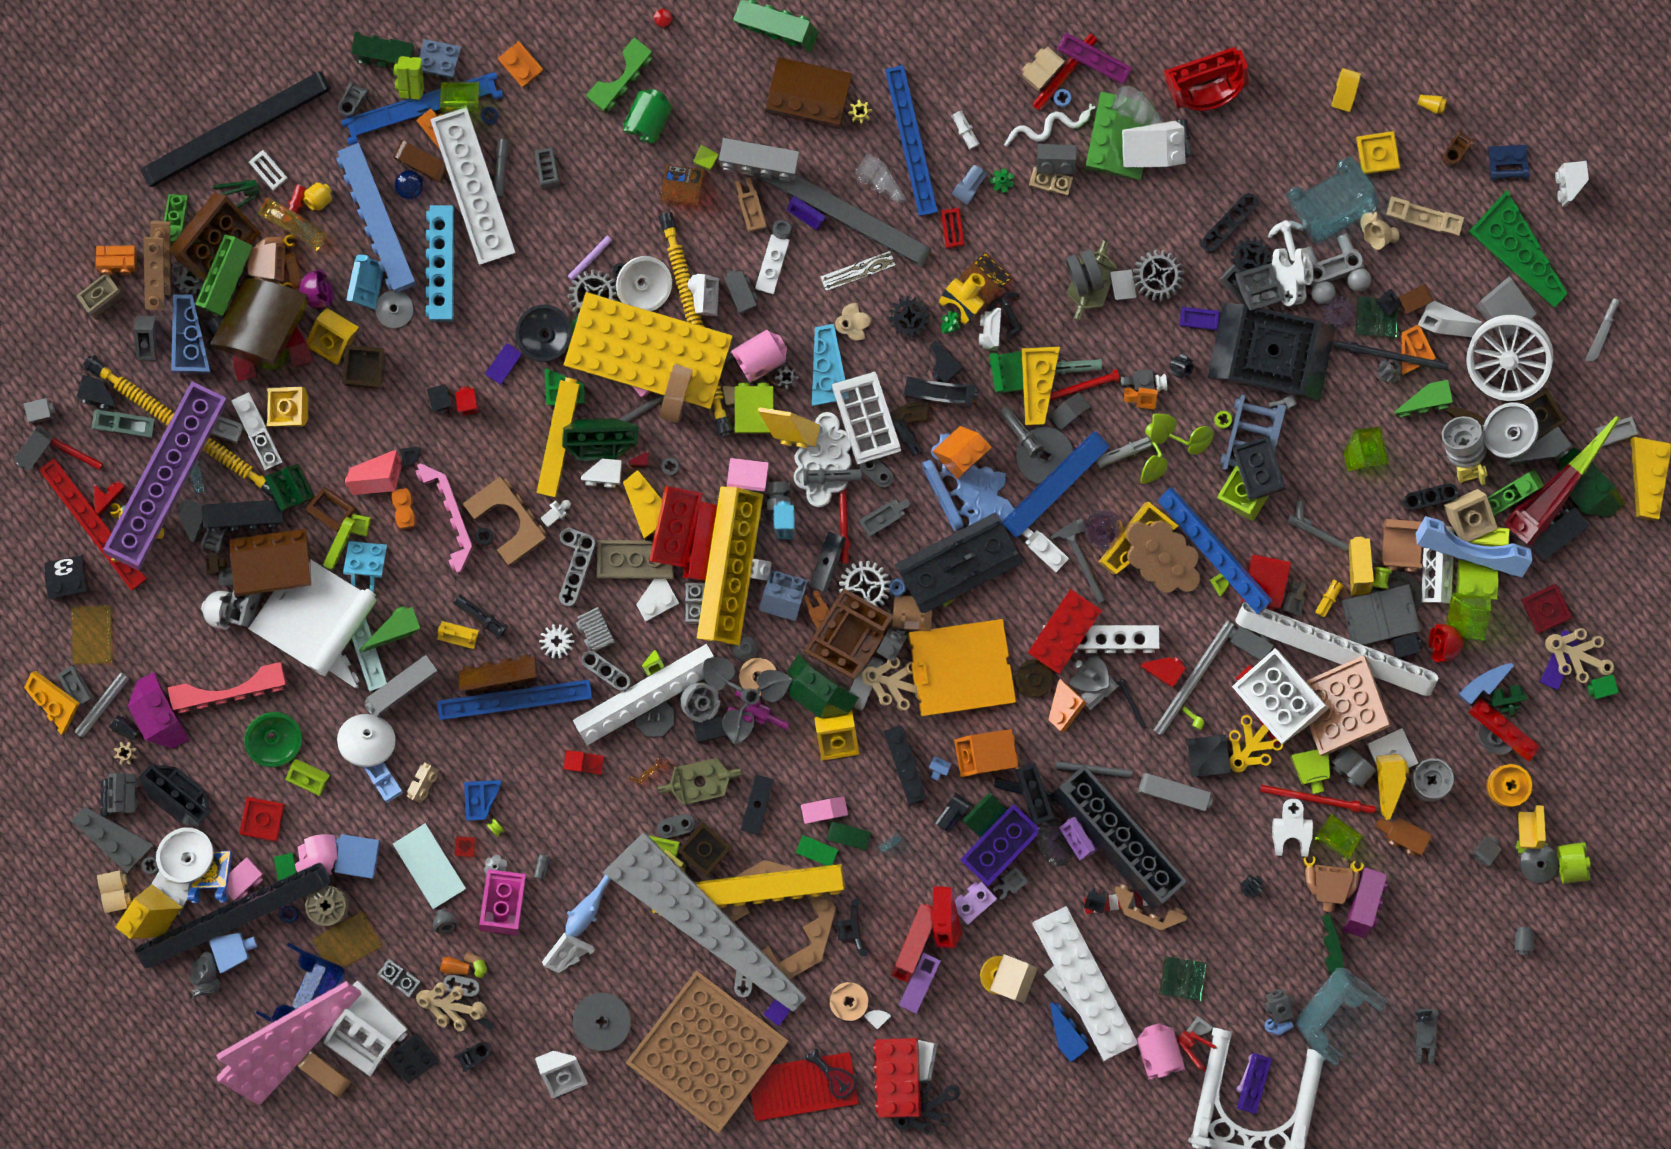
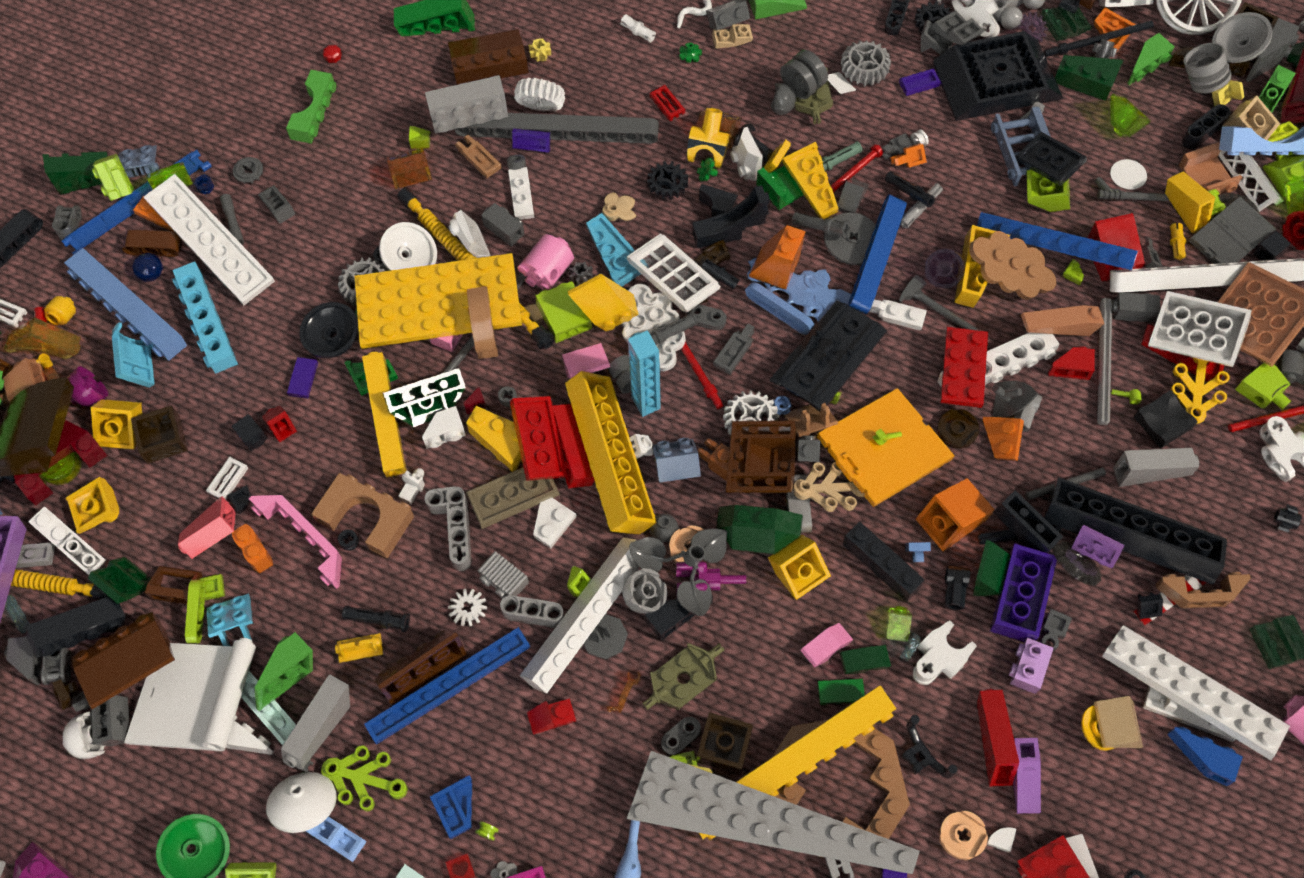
camera: 25 degrees left, 20 degrees down
(266, 678) = (164, 787): coral arch -> none
(400, 316) = (175, 384): light grey dish -> none
(410, 437) = (230, 480): none -> white tile
(417, 740) = (360, 777): none -> lime plant
(427, 775) = (385, 810): tan hinge -> none
(520, 64) = (217, 136): orange plate -> none
(538, 111) = (248, 163): none -> dark grey gear
(542, 865) = (556, 849): dark grey pin -> none
(592, 255) = (349, 254): lavender bar -> none
(648, 115) = (350, 122): green cylinder -> none
(694, 600) = (591, 507): light grey slope -> none
(754, 816) = (753, 660): black tile -> none
(827, 561) = (703, 410): black tile -> none
(833, 172) = (539, 94): none -> white gear
(857, 270) = (601, 169): sticker -> none
(877, 174) = (582, 88): clear slope -> none
(890, 819) = (898, 624): none -> clear neon green bracket
(907, 861) = (940, 656): none -> white piece
(911, 141) = (596, 54): blue plate -> none
(945, 918) = (1015, 689): red slope -> none
(959, 661) = (881, 437): none -> lime hand
(967, 188) = (664, 66): sand blue piece -> none
(1018, 341) = (777, 156): none -> yellow tile
(1058, 281) = (784, 98): none -> dark grey hair
(1126, 451) = (915, 192): none -> black pin
(1131, 702) = (1062, 408): black piece -> none
(1159, 431) = (950, 153): lime plant -> none
(1172, 629) = (1073, 320): none -> nougat slope
(1181, 366) = (929, 118): black gear -> none
(1228, 418) = (994, 142): lime bush -> none
(1332, 508) = (1128, 174): none -> white sticker
(1357, 391) = (1088, 74): none -> dark green wedge

